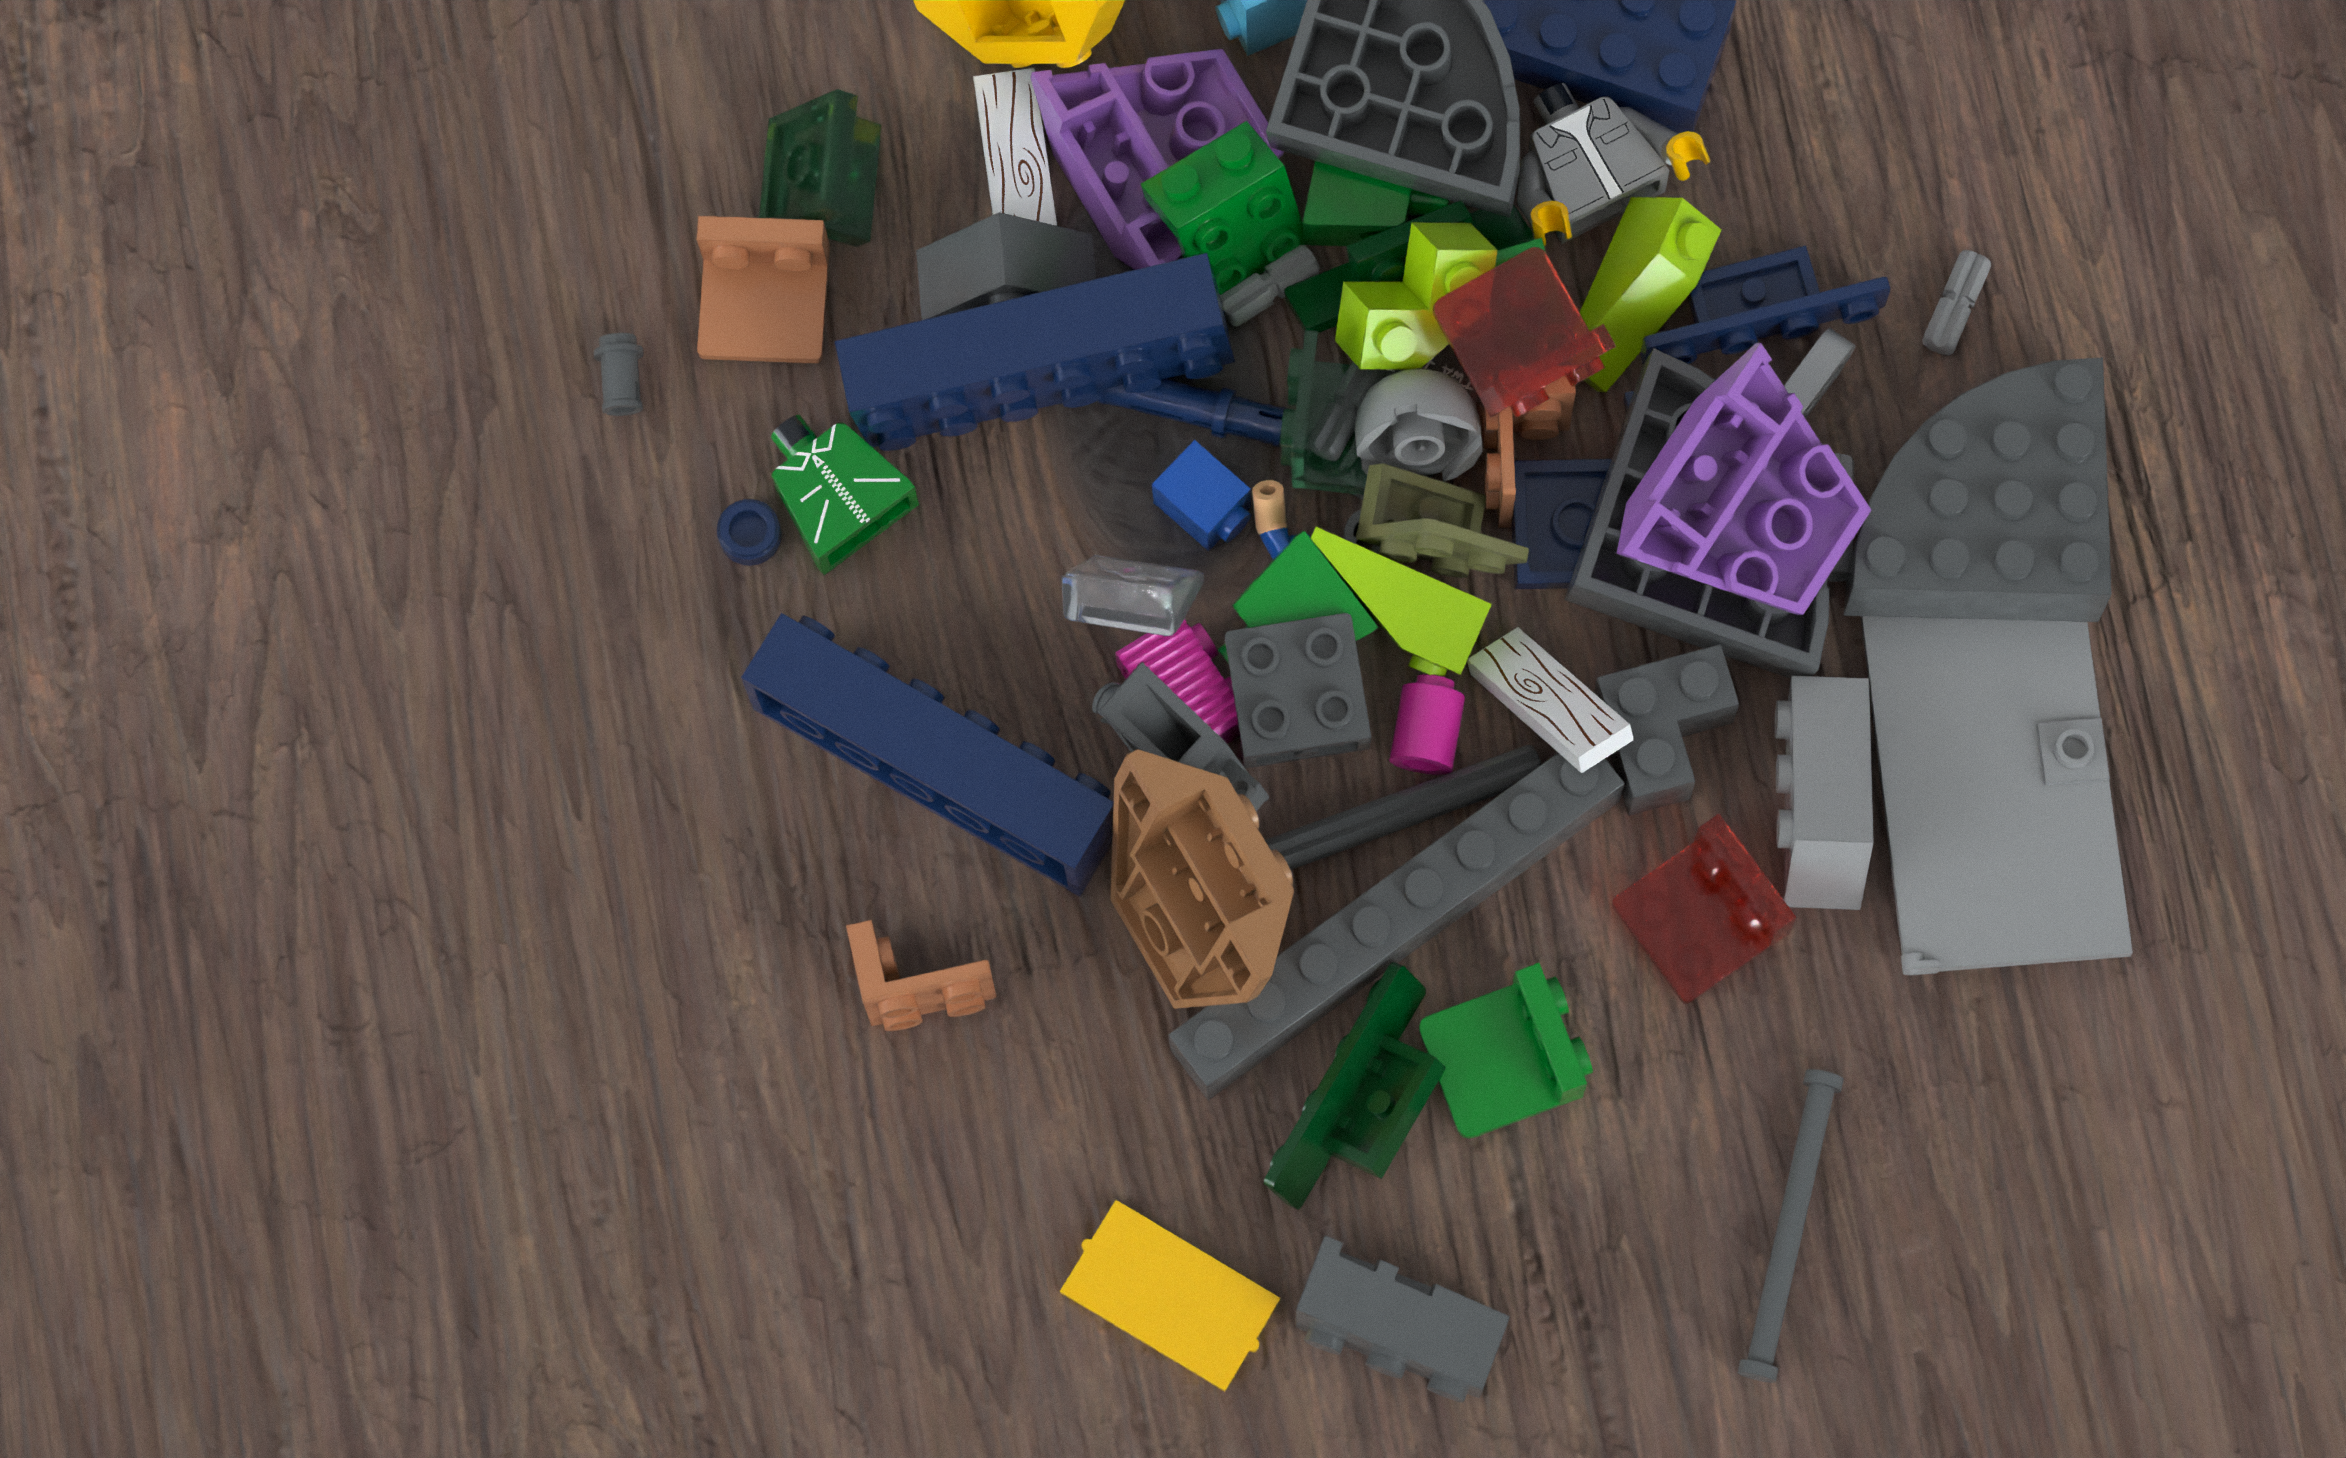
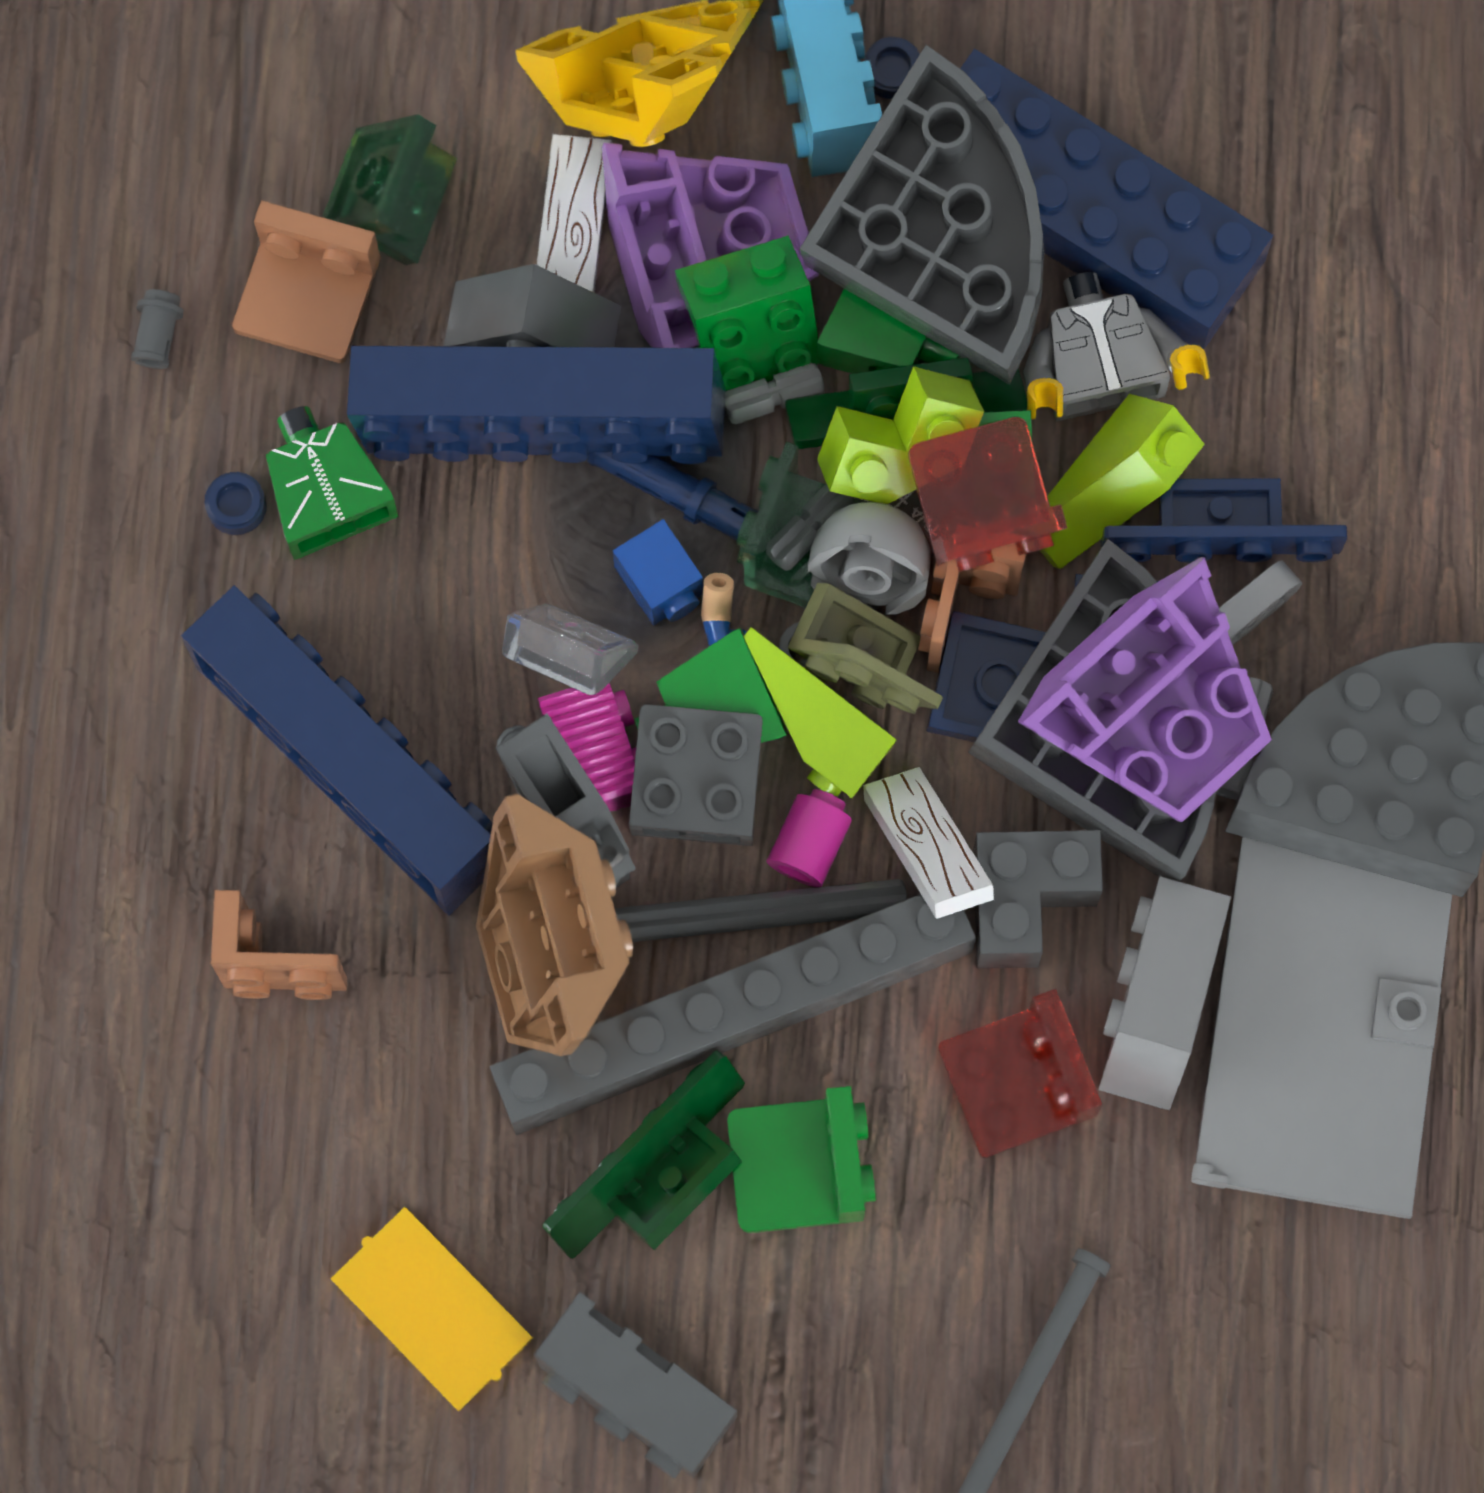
camera: 10 degrees right, 0 degrees up
(1958, 297) = (1402, 573): light grey piece -> none

